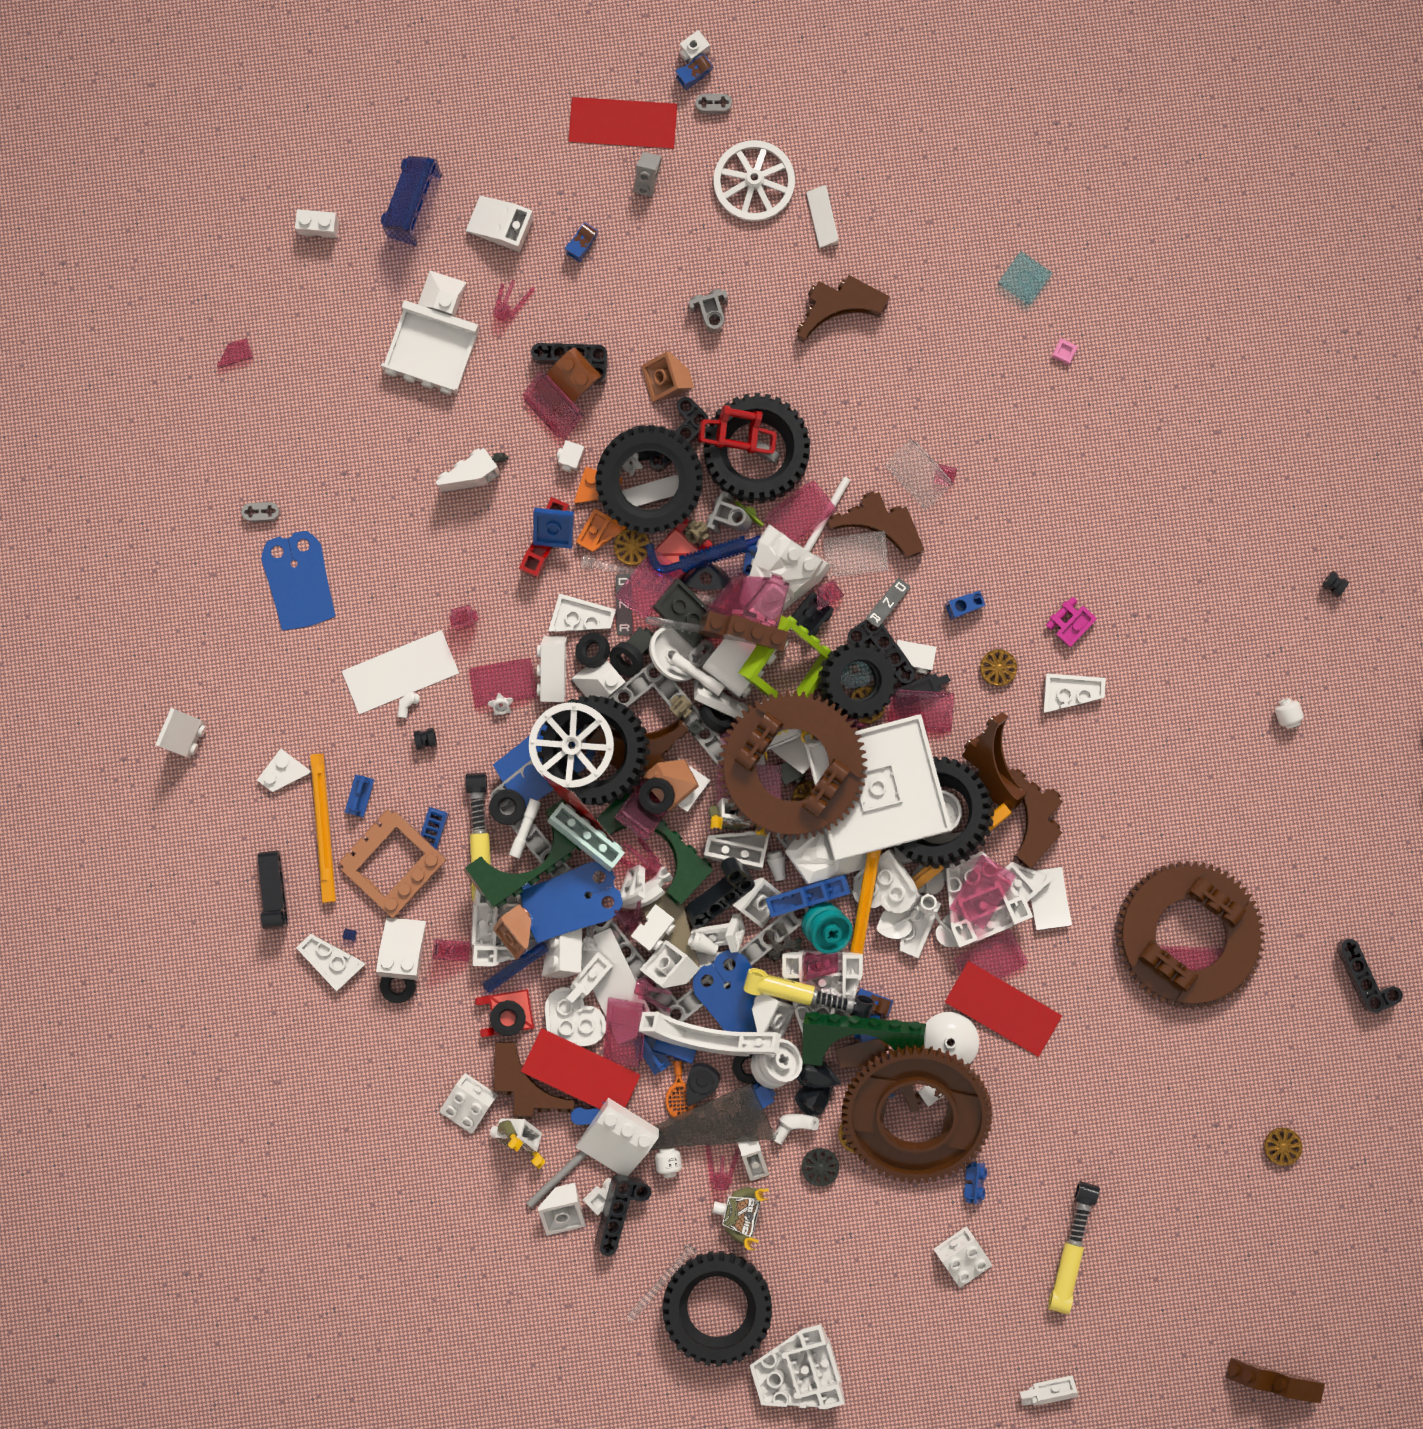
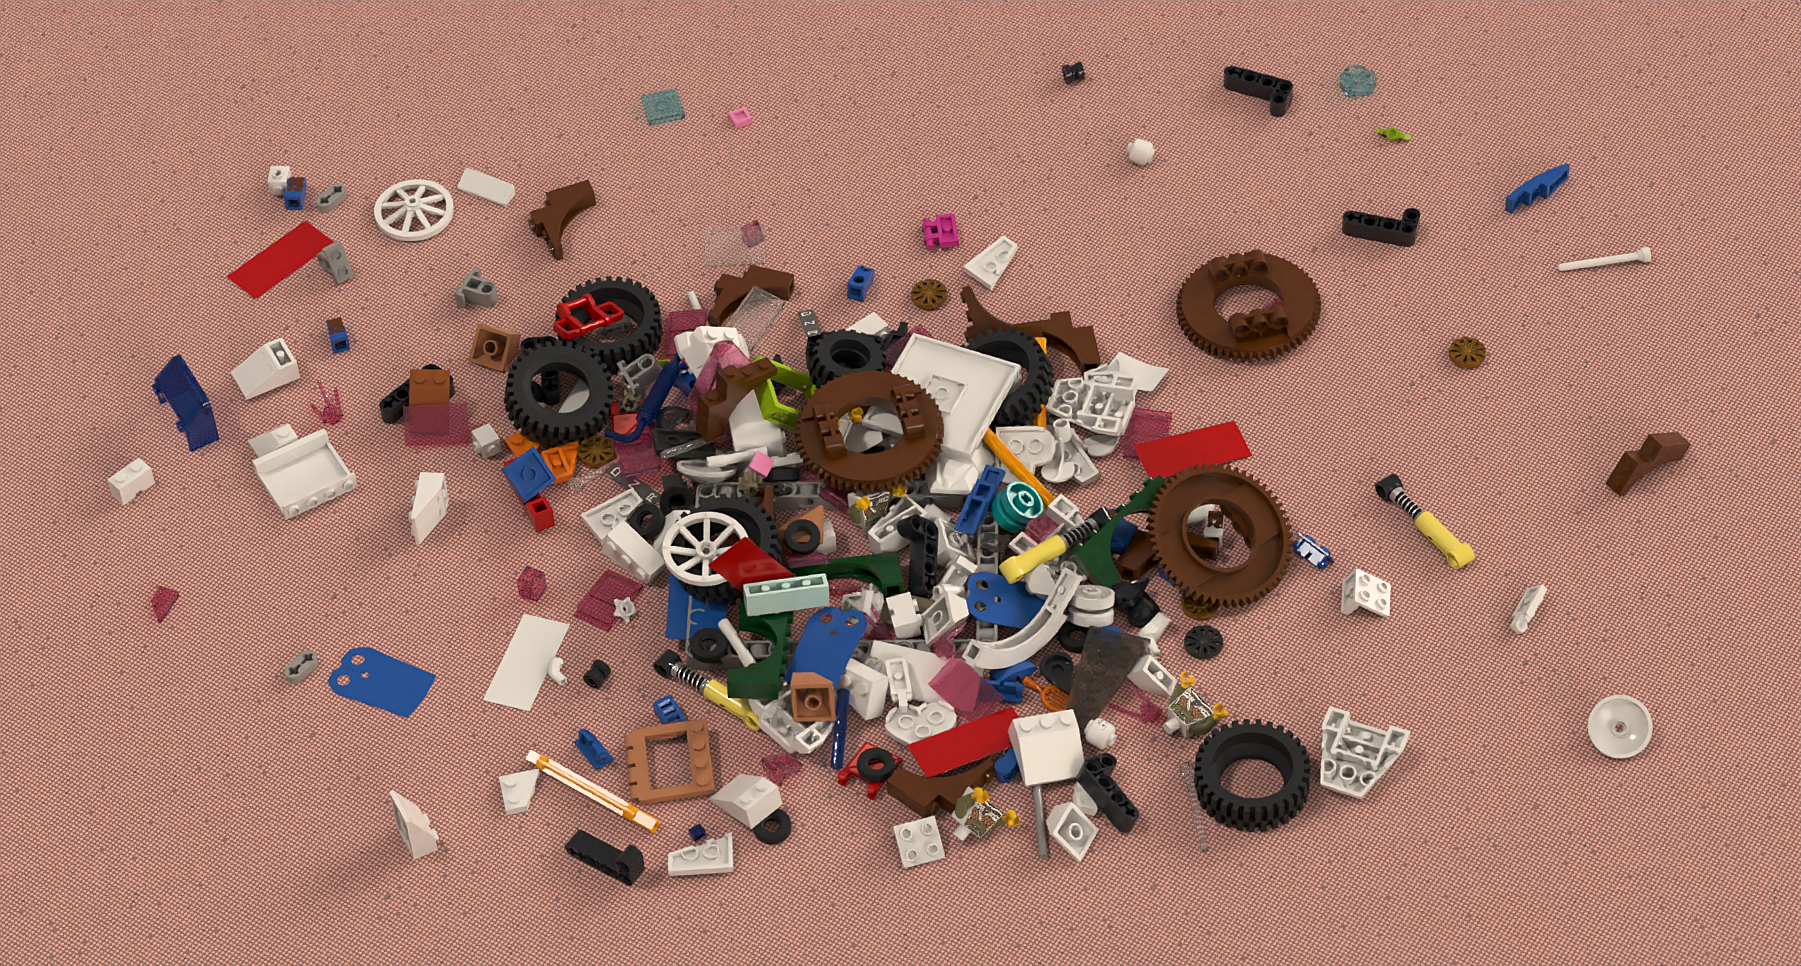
camera: 50 degrees left, 35 degrees down
(702, 701) = (761, 464): none -> bright pink tile
(828, 594) = (765, 352): clear pink tile -> none
(982, 892) = (1087, 392): clear pink piece -> none

